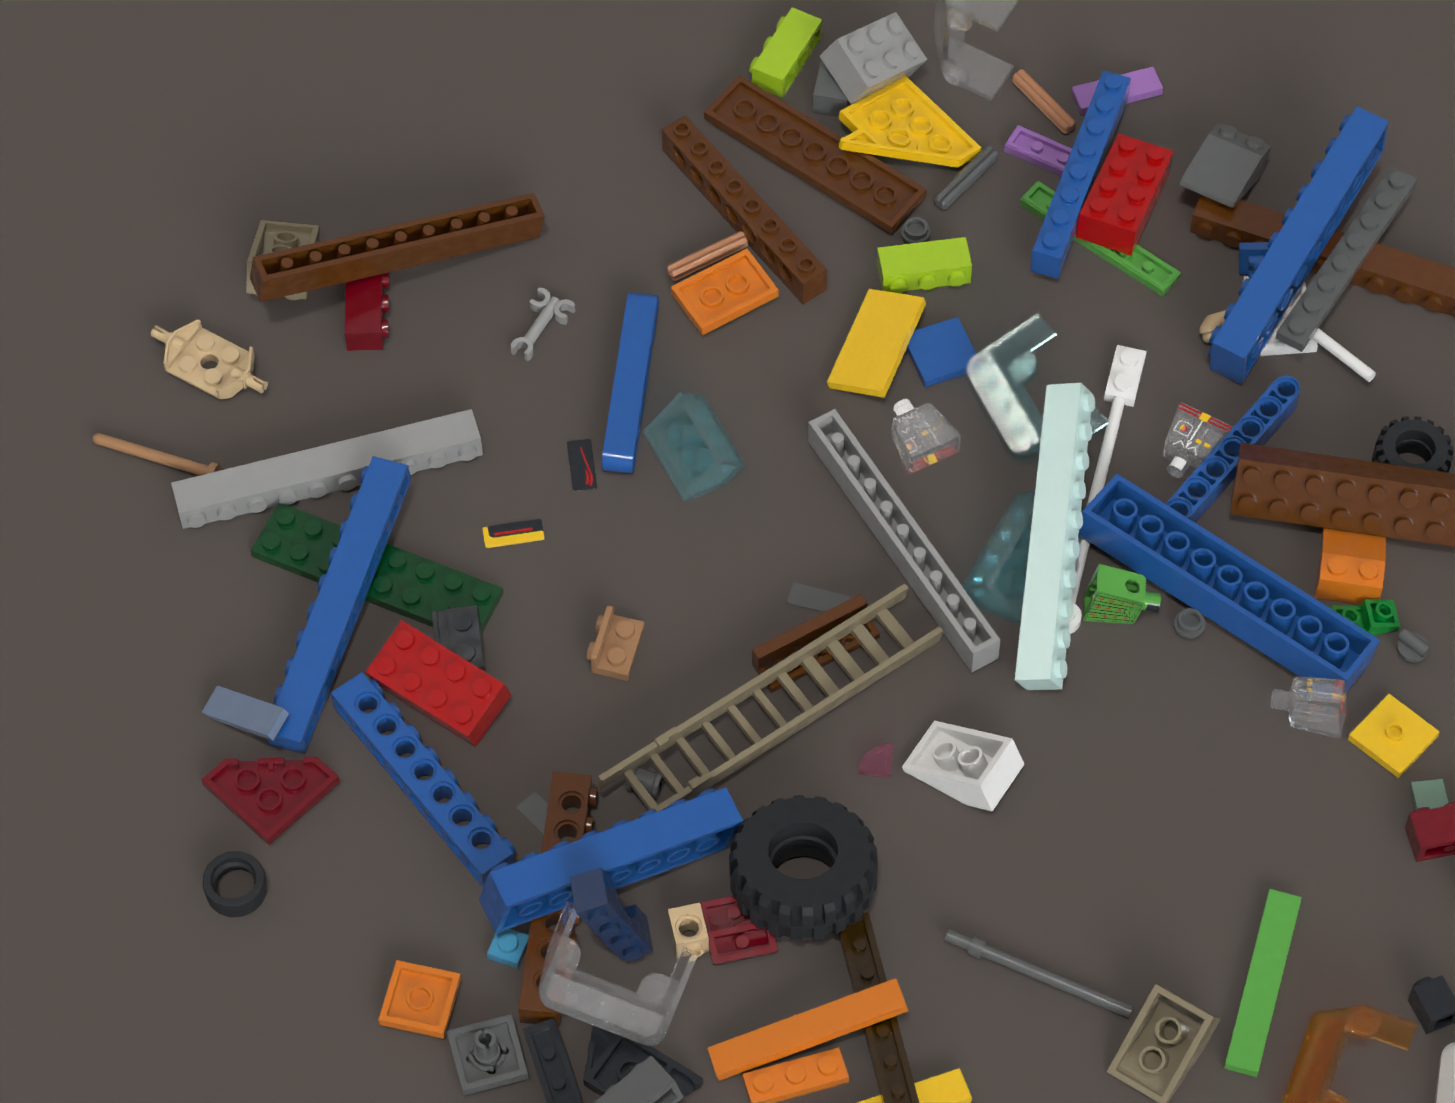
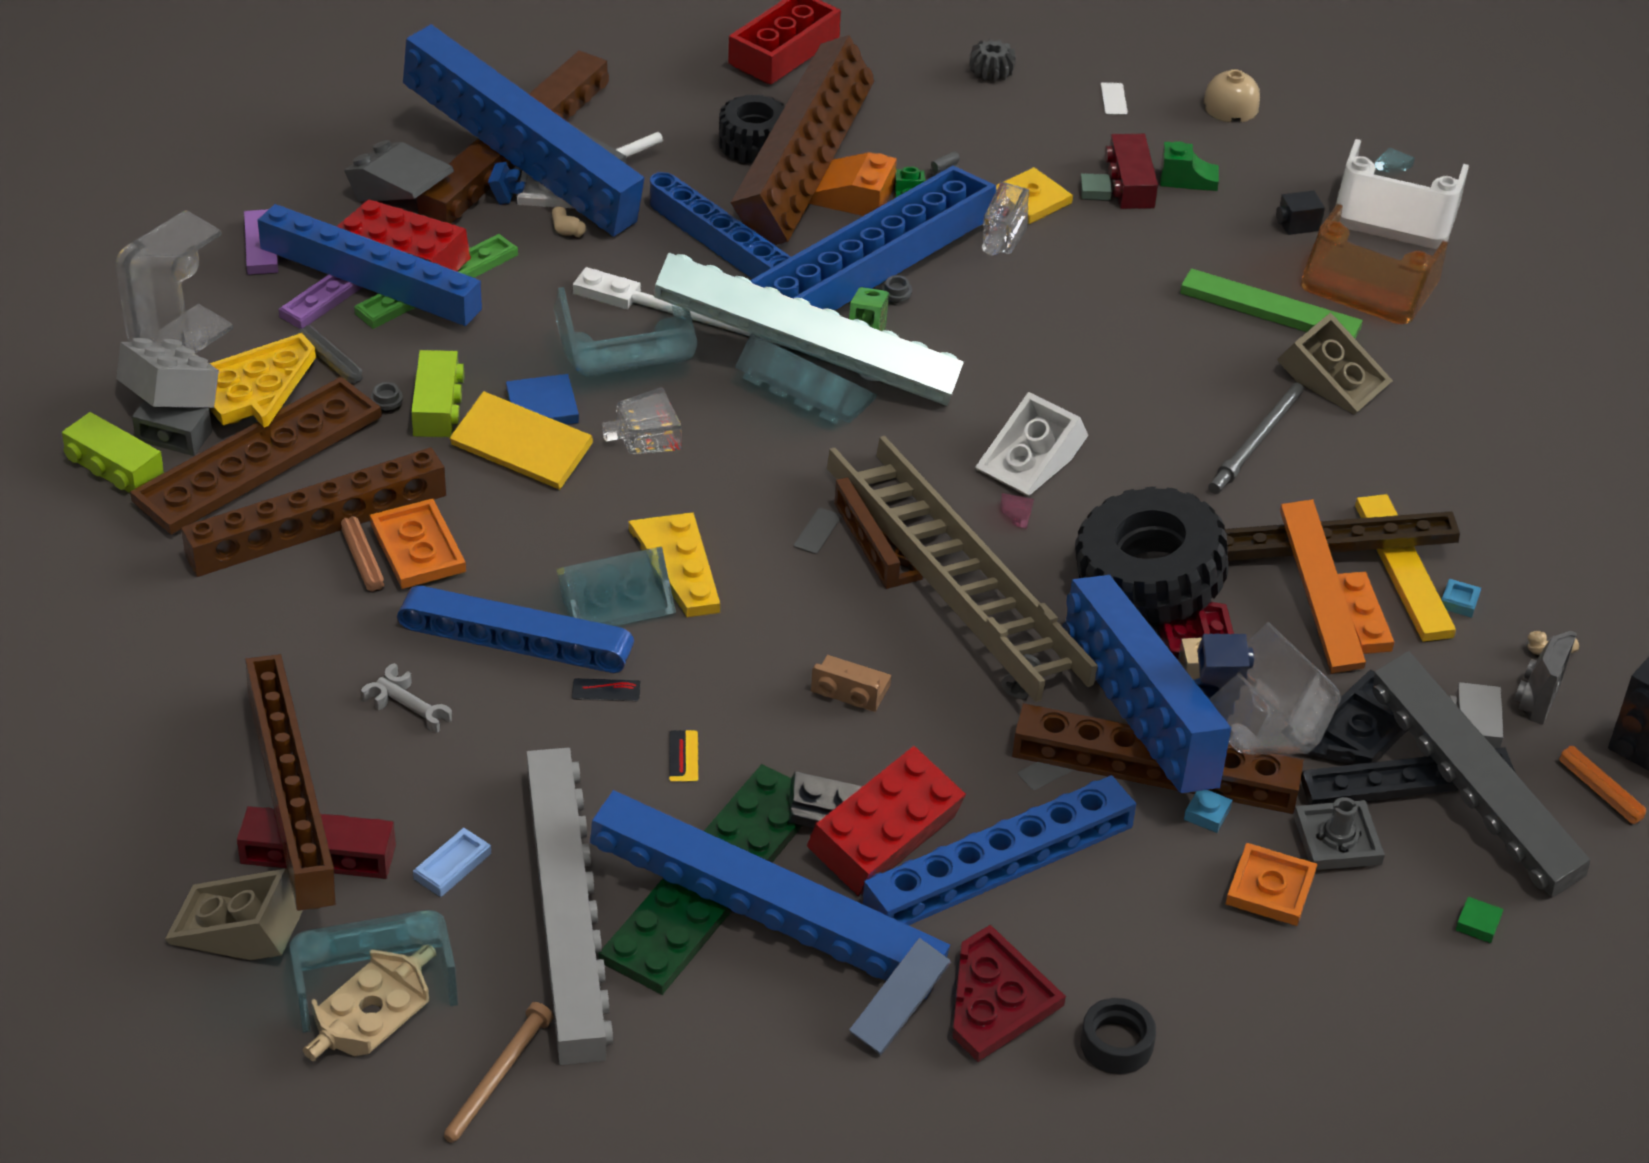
camera: 85 degrees left, 15 degrees down
(271, 377) = (356, 939): none -> clear light blue windscreen
(366, 389) = (452, 862): none -> light blue tile
(750, 493) = (684, 559): none -> yellow wing
(904, 541) = (768, 447): light grey brick -> none
(1044, 101) = (254, 289): nougat axle -> none
(1191, 439) = (702, 245): clear torso -> none

